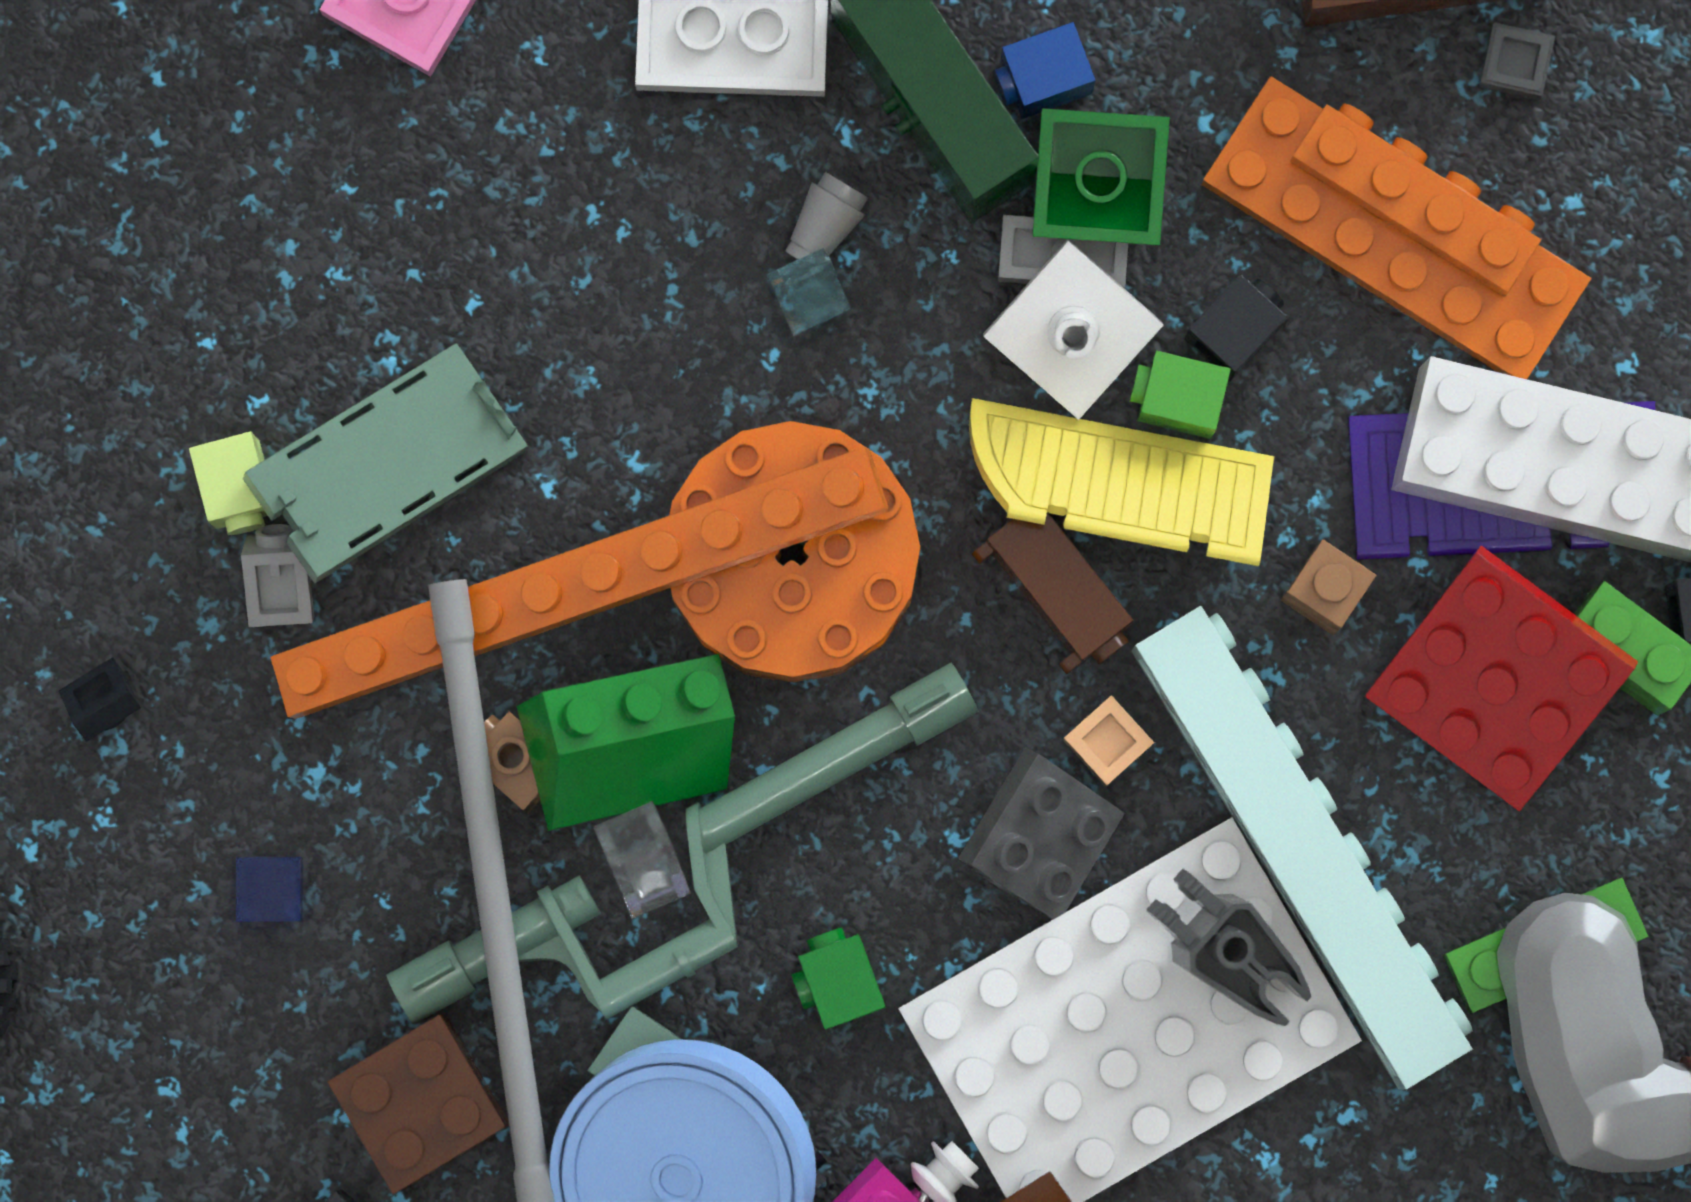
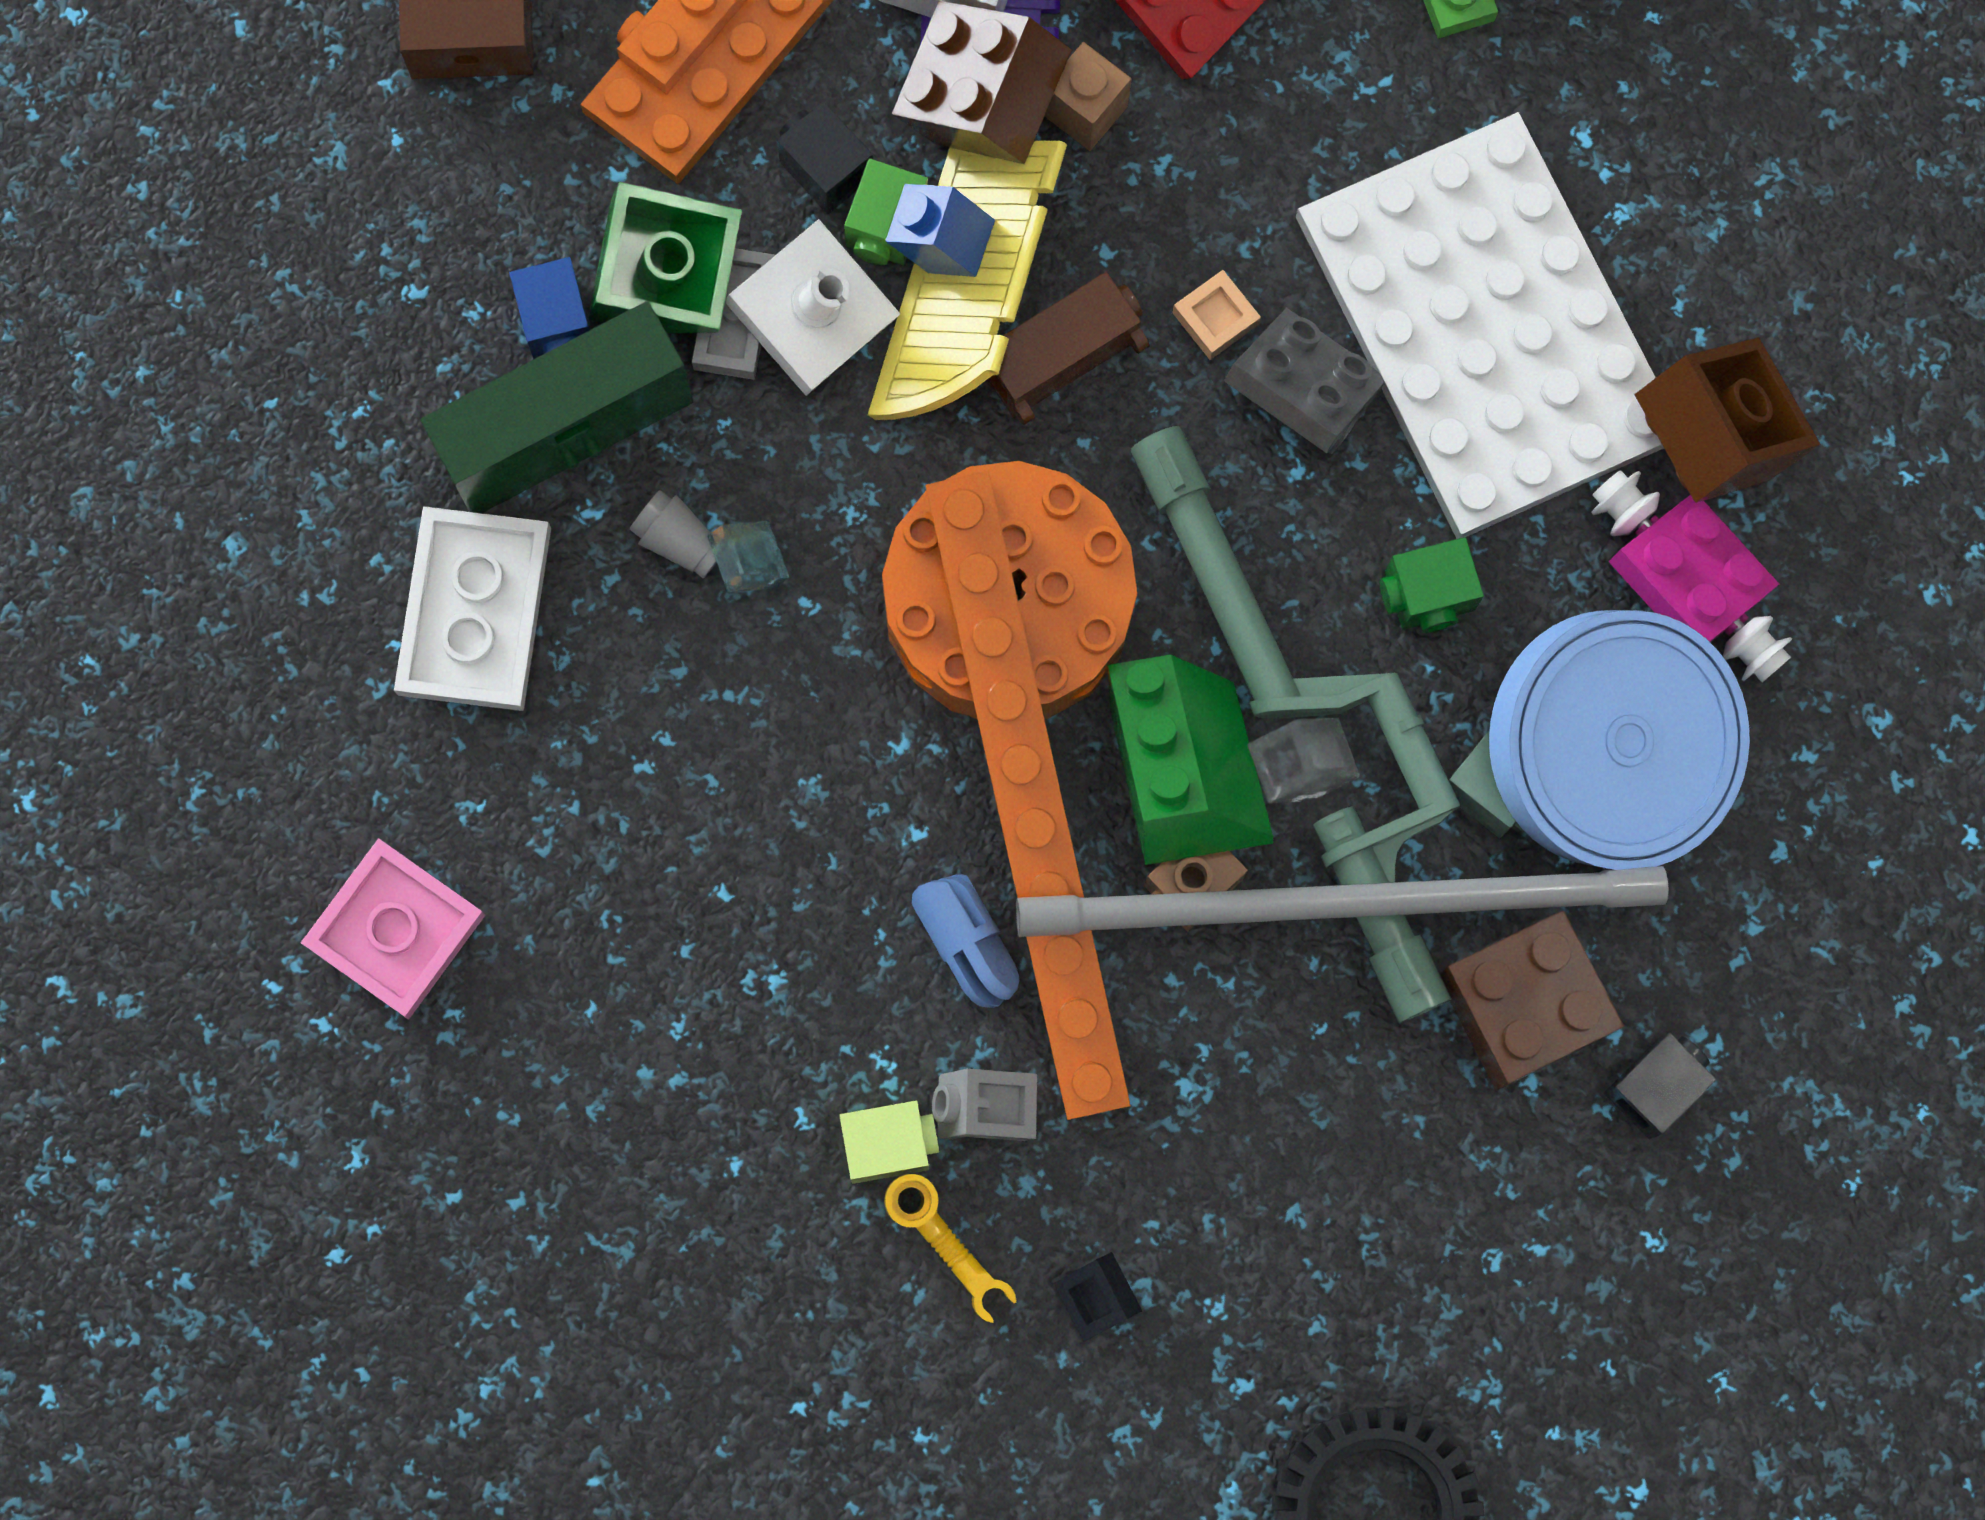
camera: 90 degrees left, 5 degrees down
(156, 535) = (936, 1232): none -> yellow brick
(269, 889) = (1301, 1141): clear blue tile -> none
(385, 462) = (882, 983): sand green piece -> none
(439, 543) = (967, 939): none -> medium blue arm
(1157, 446) = (940, 230): none -> blue brick
(1230, 948) = (1432, 206): dark grey hinge -> none
(1302, 848) = (1331, 146): light aqua brick -> none
(1321, 474) = (982, 81): none -> reddish brown brick

